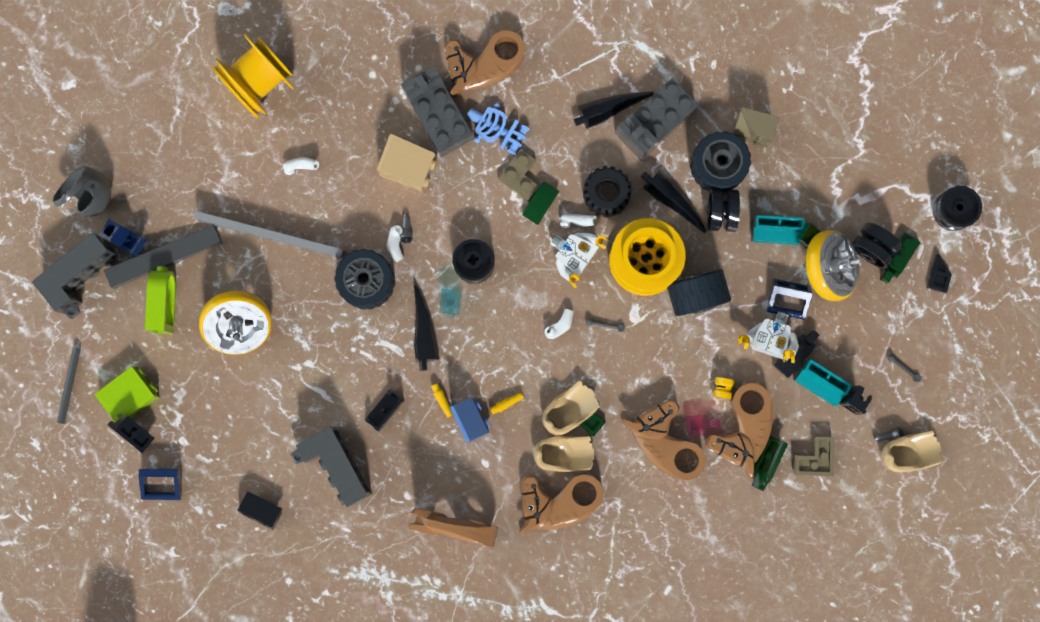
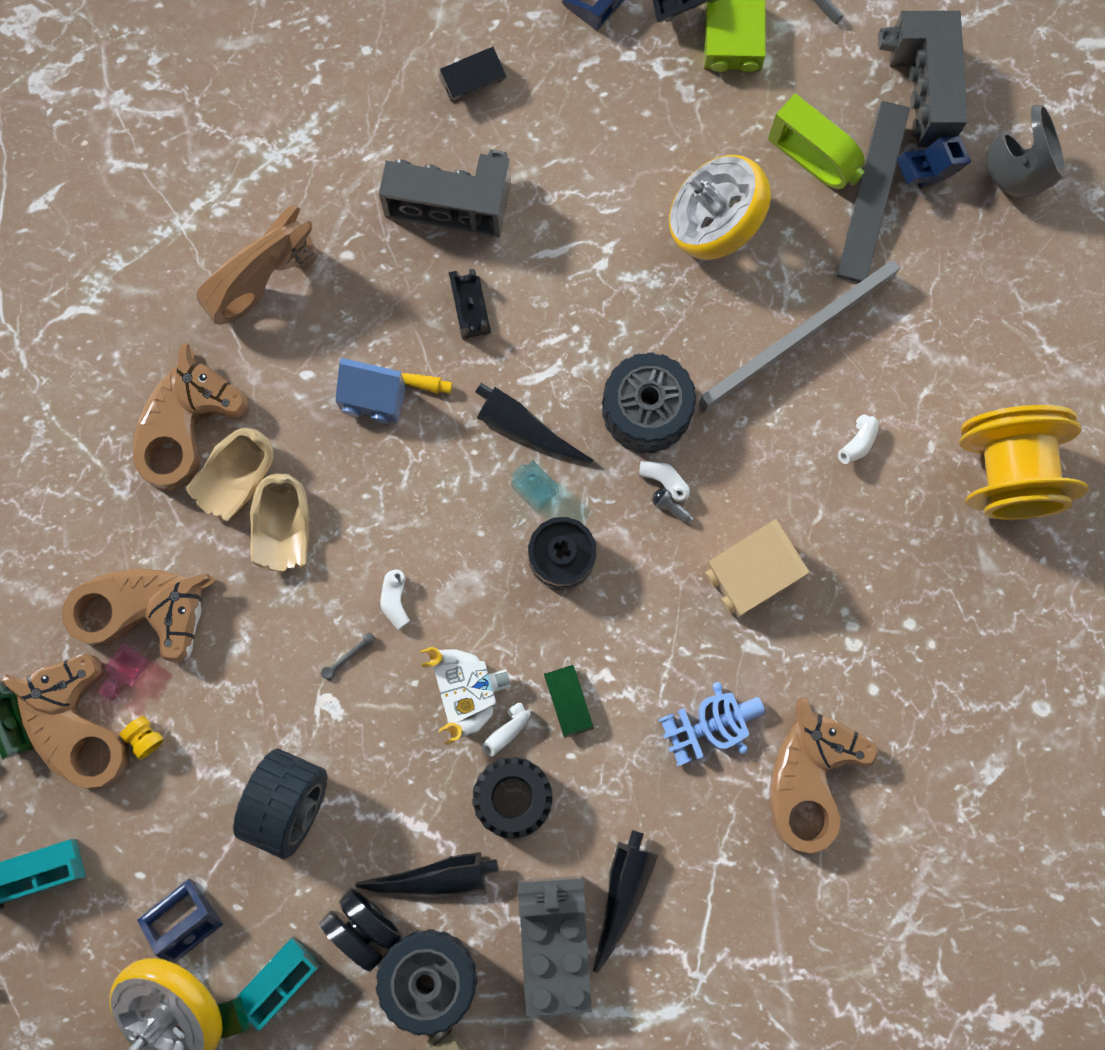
camera: 125 degrees right, 5 degrees down
(437, 111) = (794, 662): dark grey hinge -> none
(506, 403) = (356, 452): yellow animal -> none
(515, 177) = (631, 697): dark tan plate -> none
(593, 424) = (238, 540): dark green tile -> none
(664, 239) = (344, 757): yellow wheel -> none
(772, 338) = (144, 853): white torso -> none
(806, 346) = (104, 871): black hinge -> none

